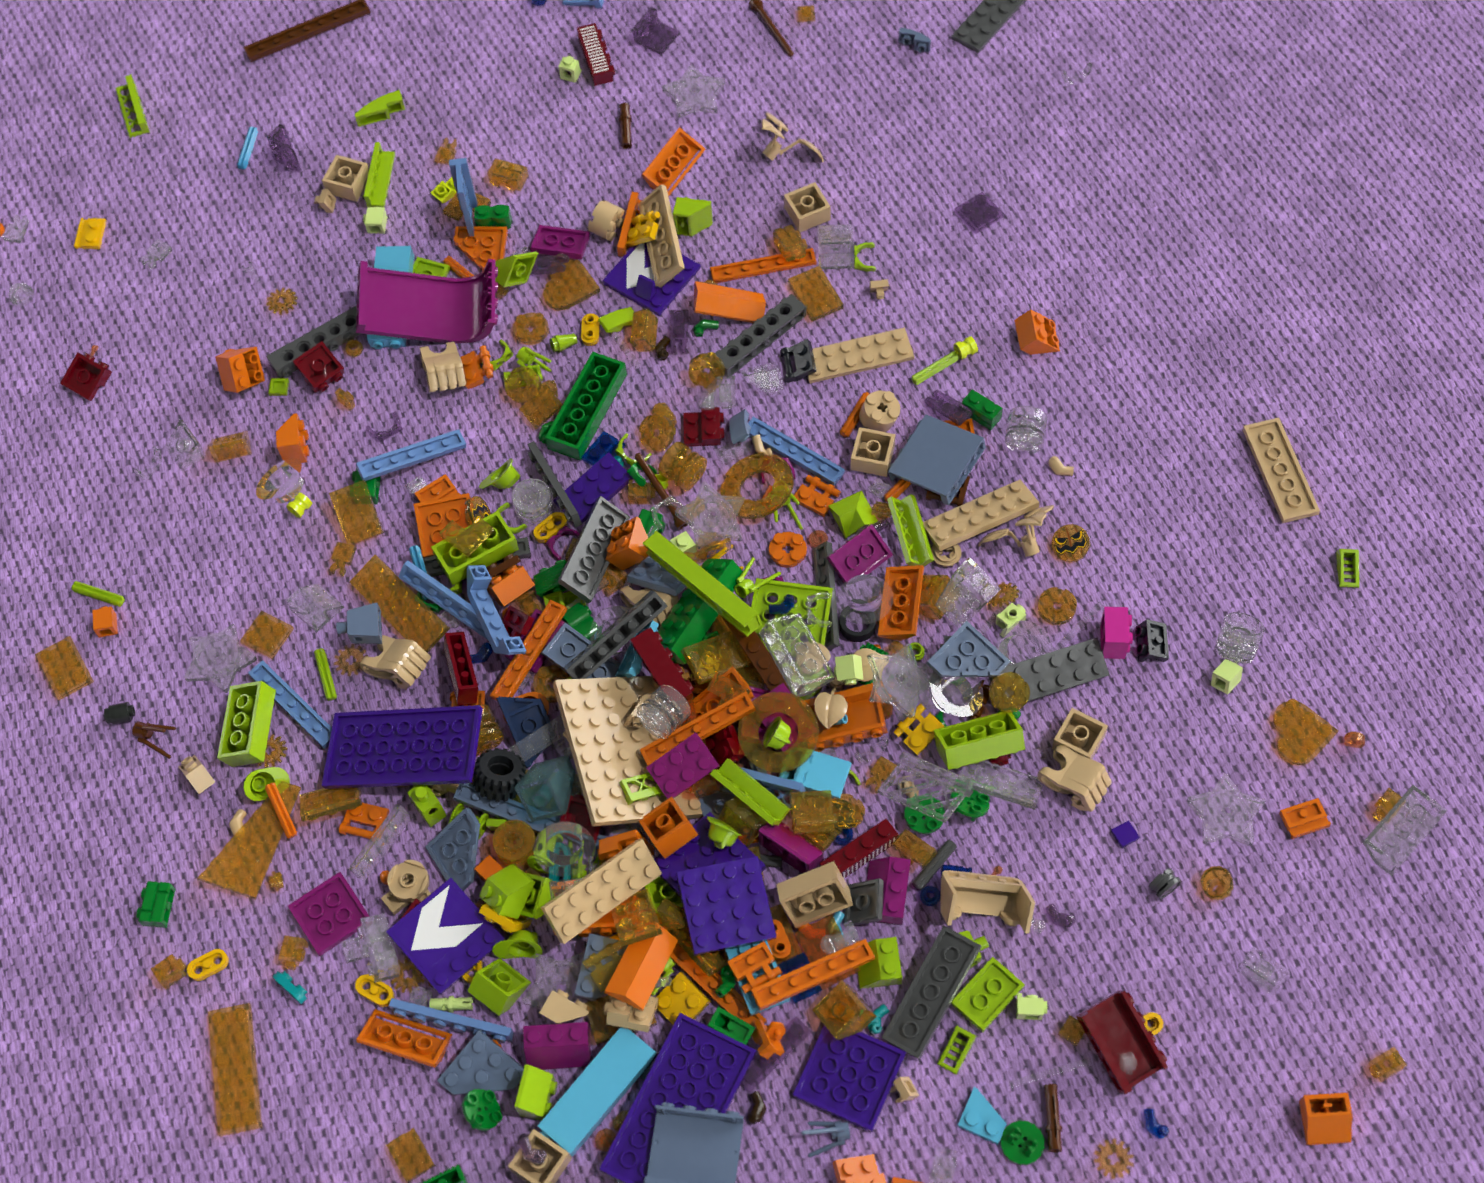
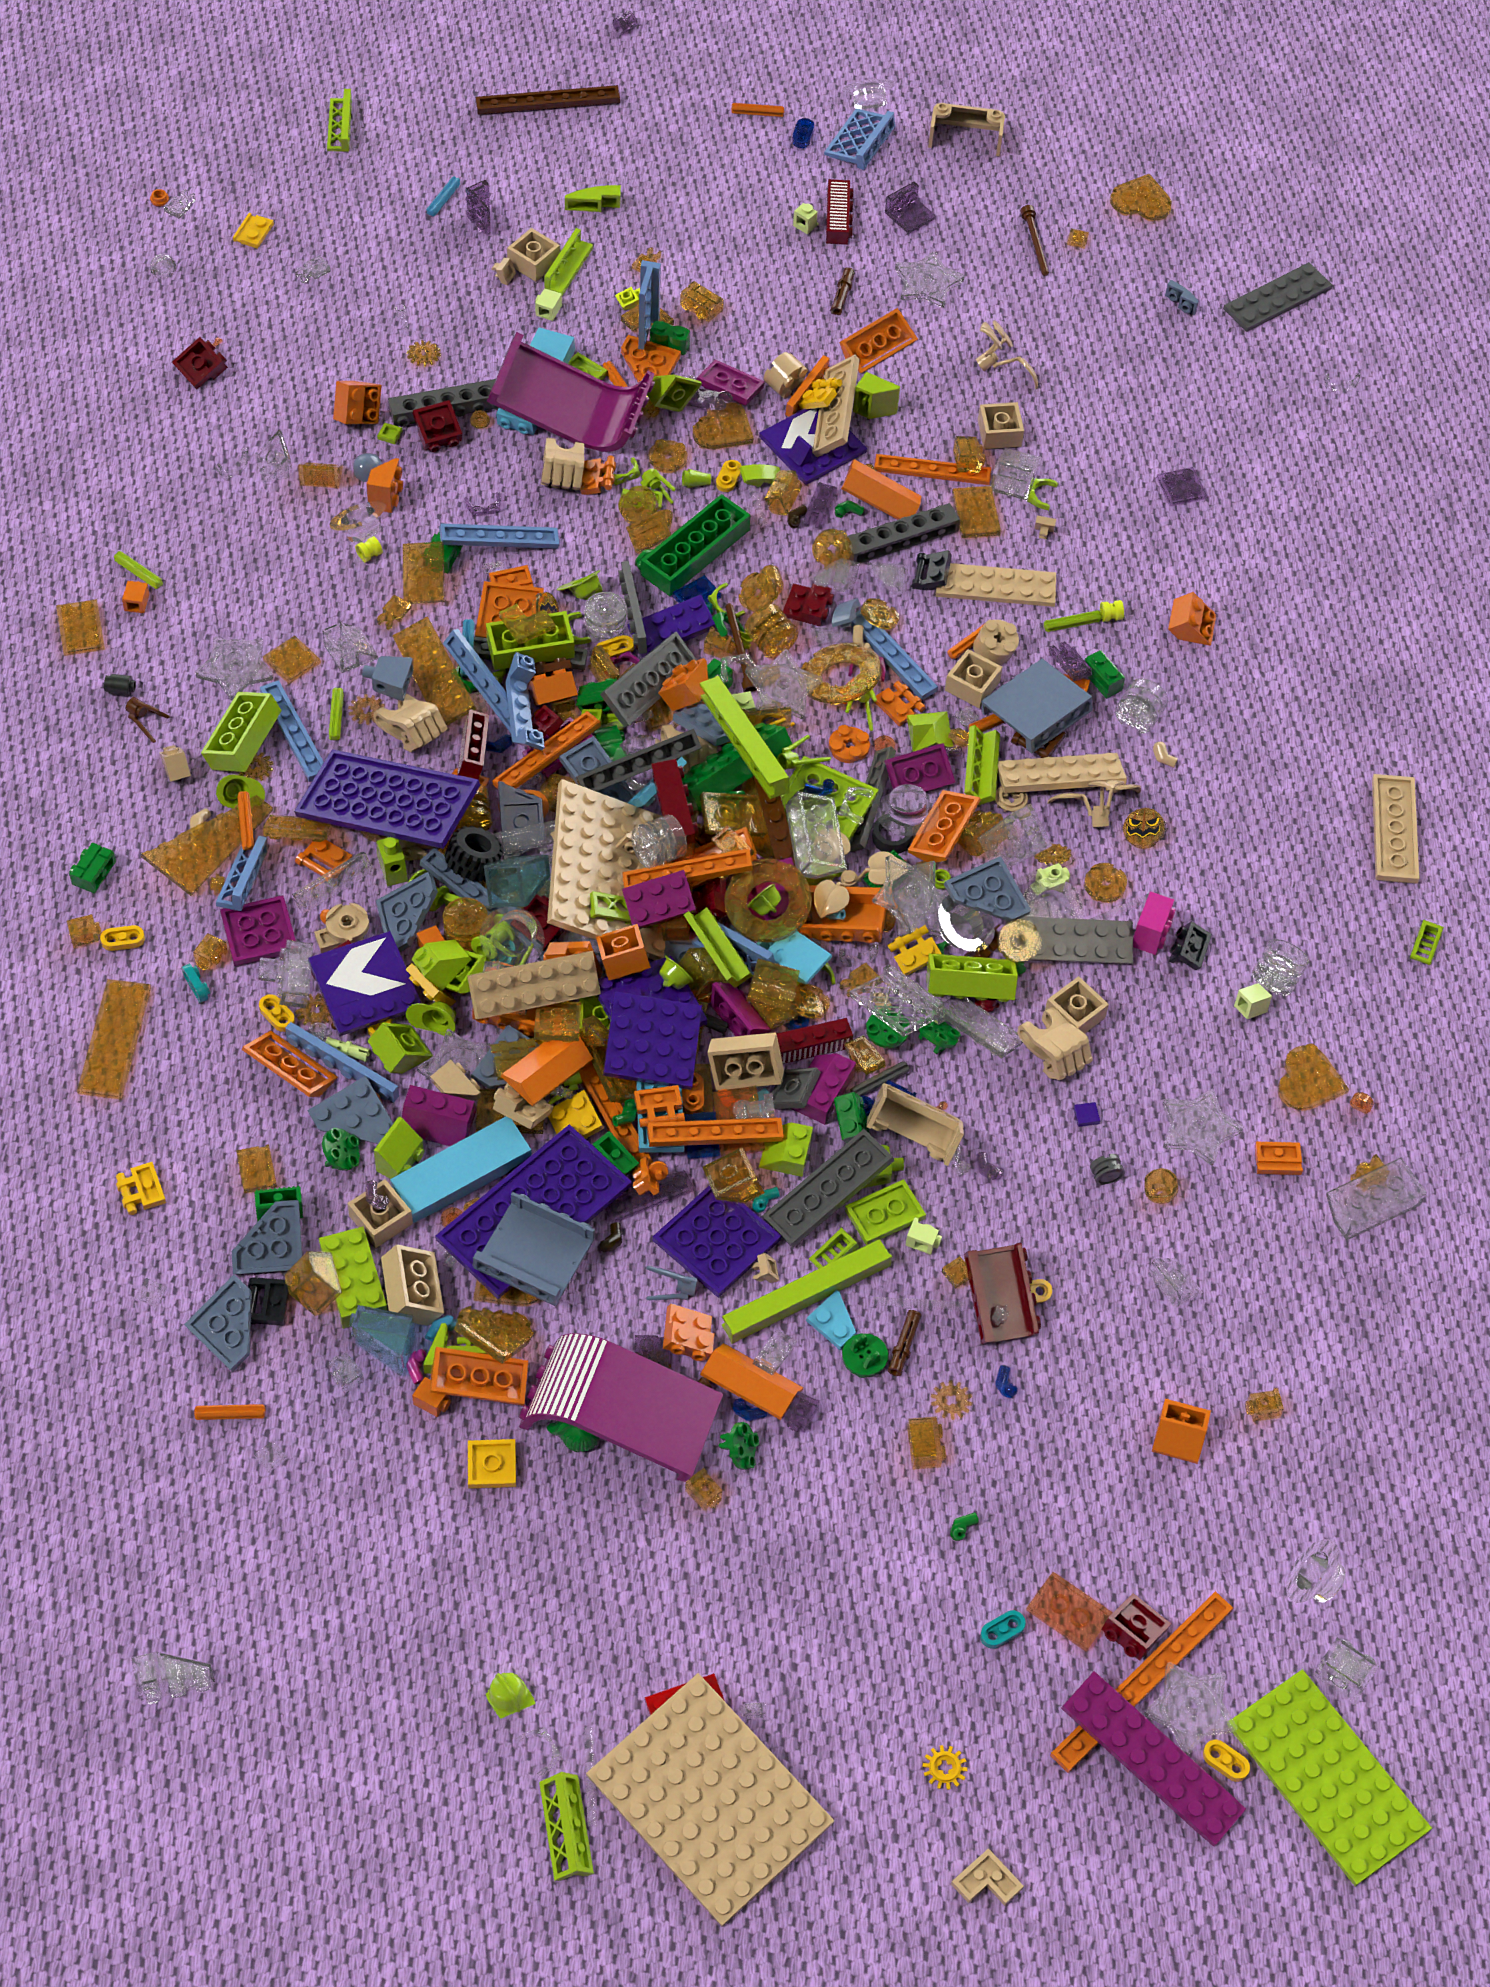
camera: 10 degrees right, 5 degrees down
(268, 425) = (363, 465): none -> sand blue hair
(301, 865) = (245, 878): none -> medium blue fence
(345, 398) = (453, 464): clear yellow plate -> none
(547, 549) = (602, 666): none -> clear yellow plate
(769, 417) = (879, 614): none -> clear yellow tile
(848, 669) = (863, 865): yellowish green brick -> none
(926, 914) = (850, 1115): none -> green brick
(947, 1099) = (806, 1291): none -> lime tile

